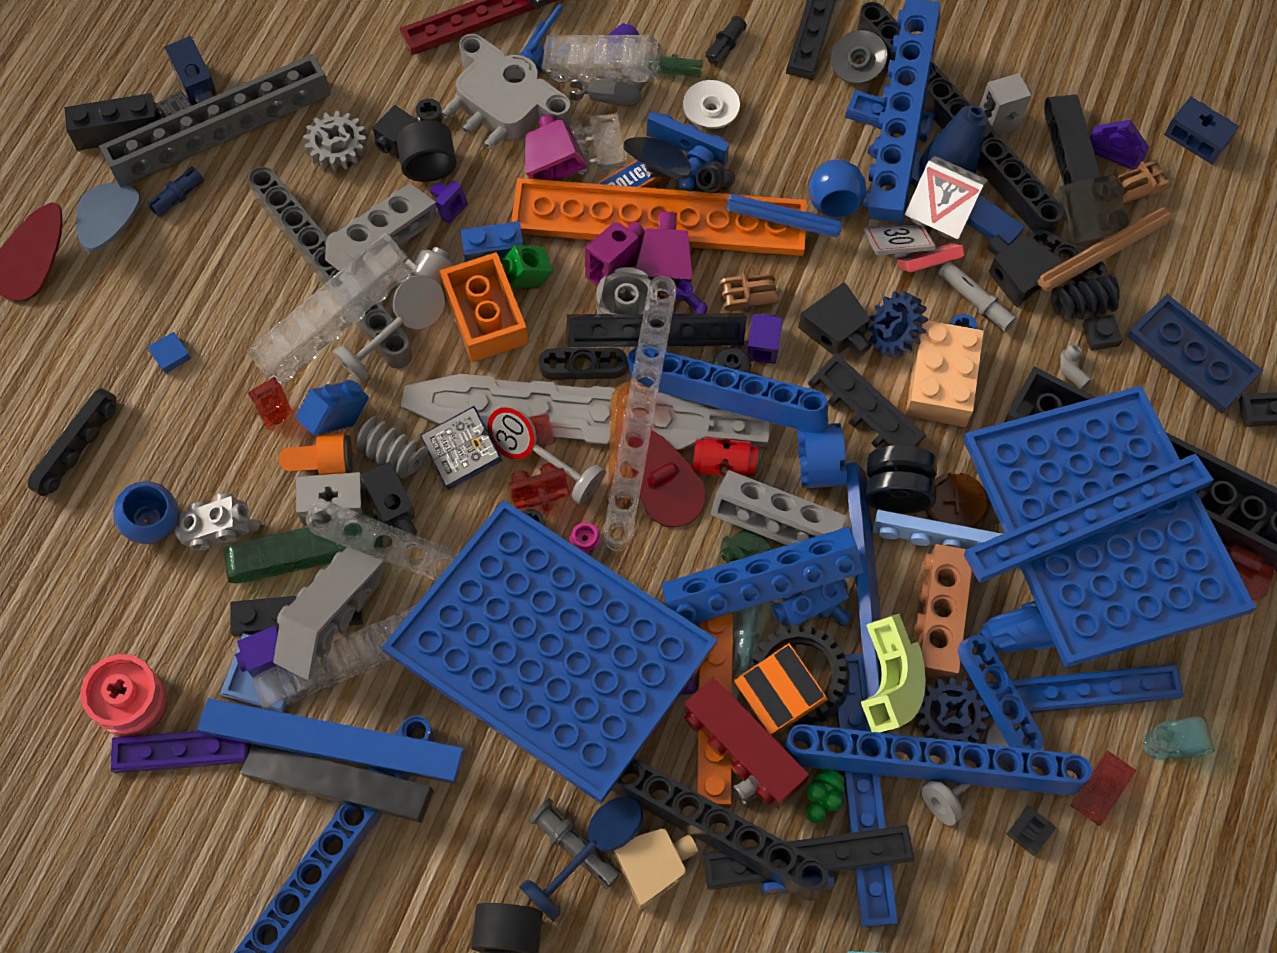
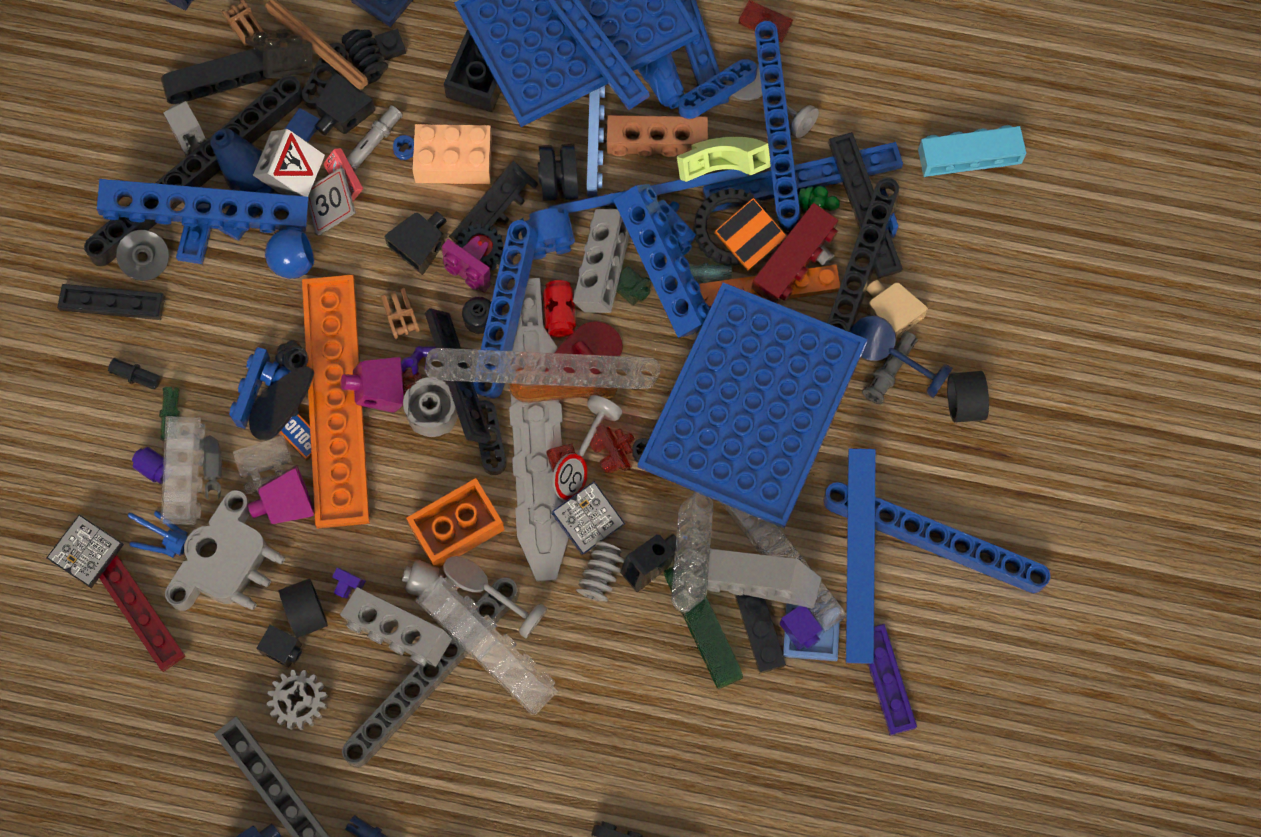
camera: 100 degrees left, 5 degrees up
(123, 695) = (845, 738): coral wheel -> none
(143, 502) = (713, 755): blue helmet -> none
(169, 352) = (540, 793): blue tile -> none
(215, 522) = (696, 690): light grey brick -> none
(270, 402) = (582, 678): clear red plate -> none
(329, 455) = (621, 621): orange piece -> none
(332, 407) = (578, 624): blue brick -> none
(338, 782) = (891, 541): black tile -> none
(343, 489) = (655, 628): light grey brick -> none
(429, 105) = (243, 620): black bush -> none
(490, 239) = (389, 531): blue brick -> none
(527, 266) = (407, 495): green brick -> none
(582, 530) = (647, 399): dark pink plate -> none
(612, 250) = (385, 425): magenta torso -> none
(715, 96) = (208, 362): white dish -> none
(764, 338) = (442, 294): dark purple brick -> none
(784, 215) = (324, 293): blue axle -> none
(803, 366) = (474, 255): none -> magenta plate
(897, 324) = (406, 188): dark blue gear -> none
(942, 704) = (734, 118): dark blue gear -> none
(958, 500) = (561, 130): reddish brown tile -> none
(1031, 830) = (807, 65): black tile -> none
(1070, 366) = (428, 65): light grey arm -> none
(1119, 143) = (210, 38): dark purple plate -> none

